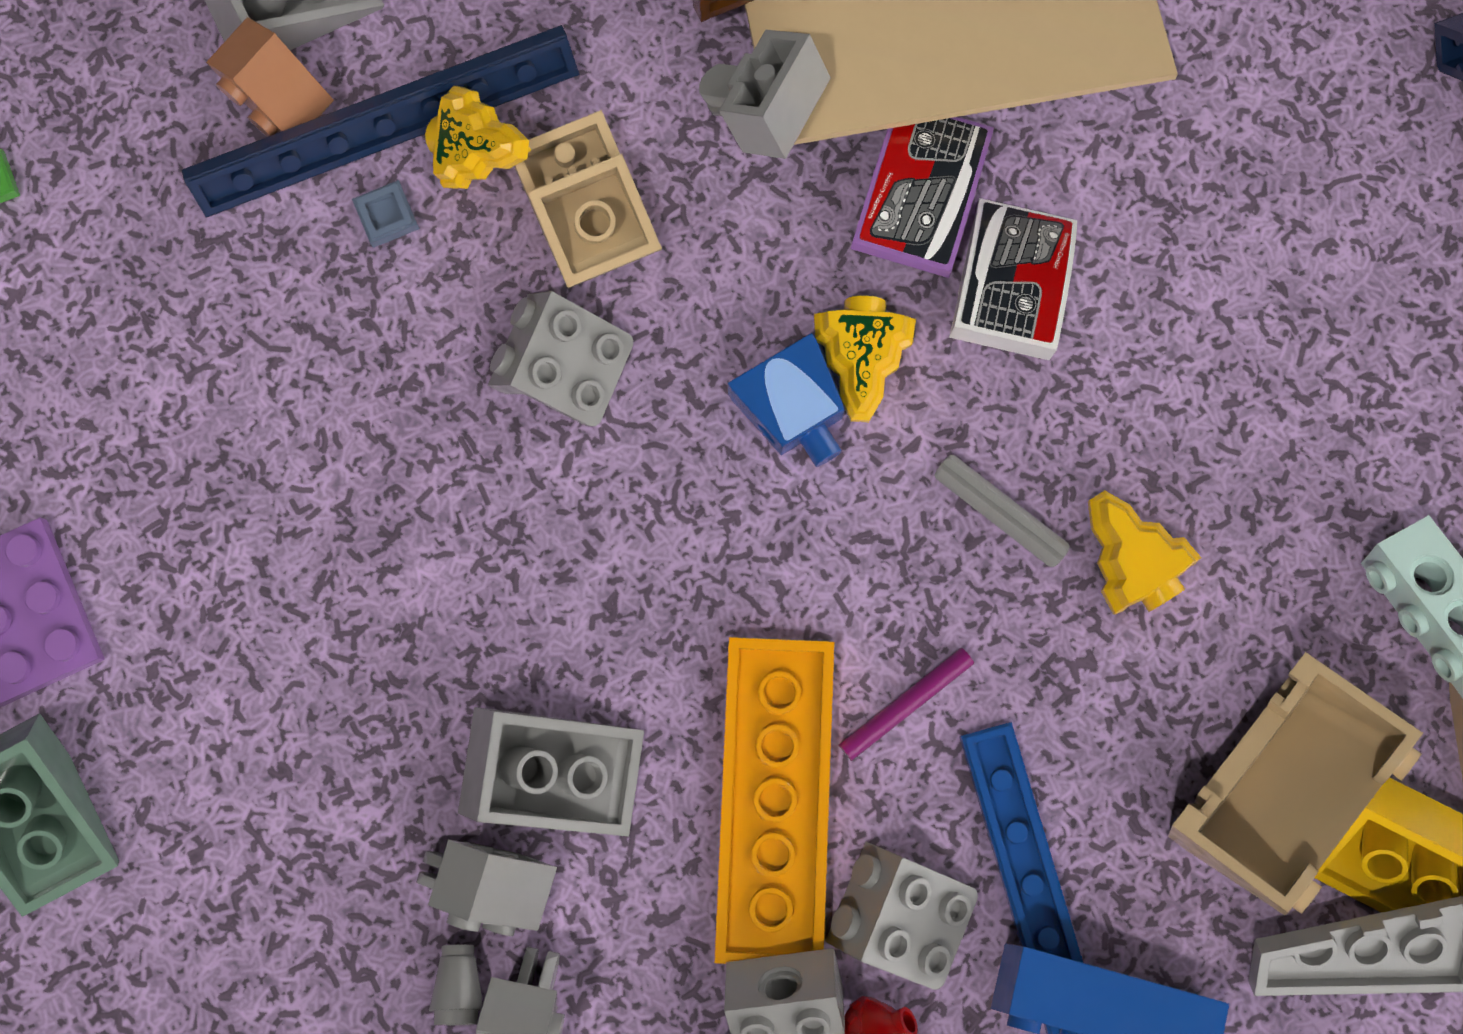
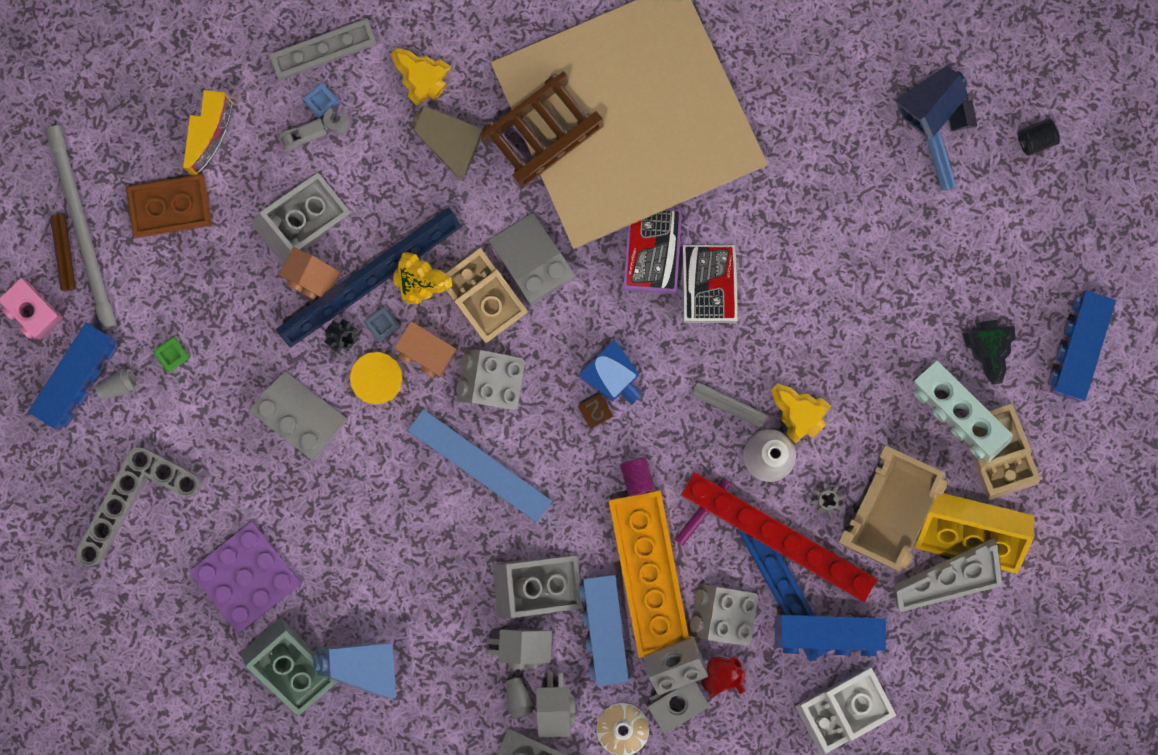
camera: 15 degrees left, 5 degrees up
(150, 848) = (360, 666): none -> medium blue slope
(181, 341) = (298, 415): none -> light grey slope
(293, 199) = (340, 335): none -> black gear
(349, 308) = (376, 378): none -> yellow tile
(452, 274) = (425, 349): none -> nougat brick
(501, 516) = (480, 465): none -> medium blue tile
(661, 893) = (605, 630): none -> medium blue brick
(693, 165) = (532, 259): none -> light grey slope
(744, 464) = (595, 411): none -> reddish brown tile
(768, 92) = (564, 227): light grey brick -> none
(795, 604) = (637, 476): none -> magenta piece
(863, 349) = (641, 340): yellow rock -> none
(1046, 790) = (778, 537): none -> red plate
(1059, 625) = (758, 457): none -> white cone
(1171, 739) = (835, 499): none -> light grey gear

